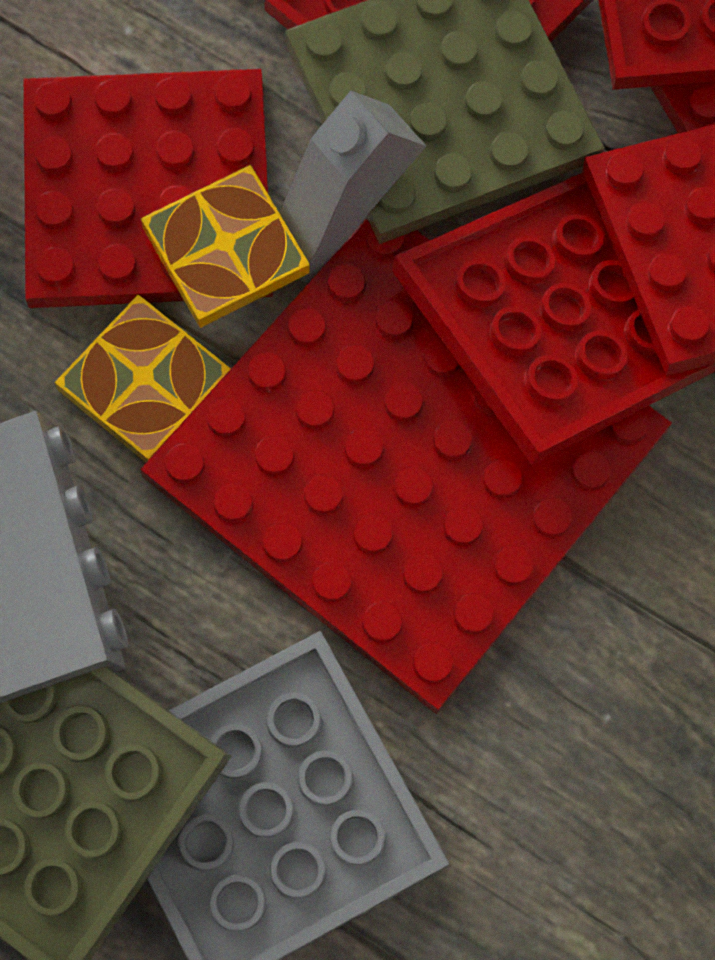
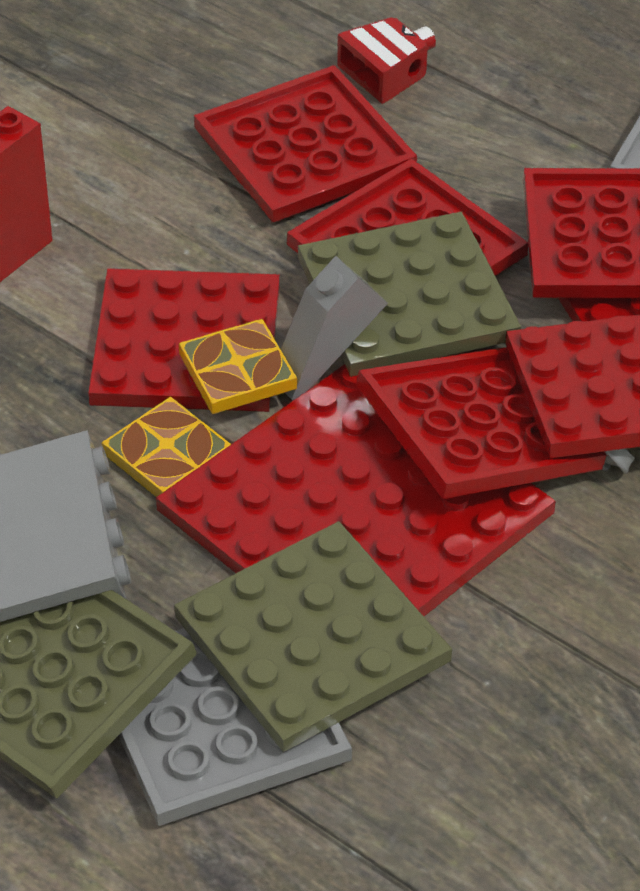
camera: 10 degrees right, 25 degrees down
(377, 691) = (312, 635): none -> olive plate

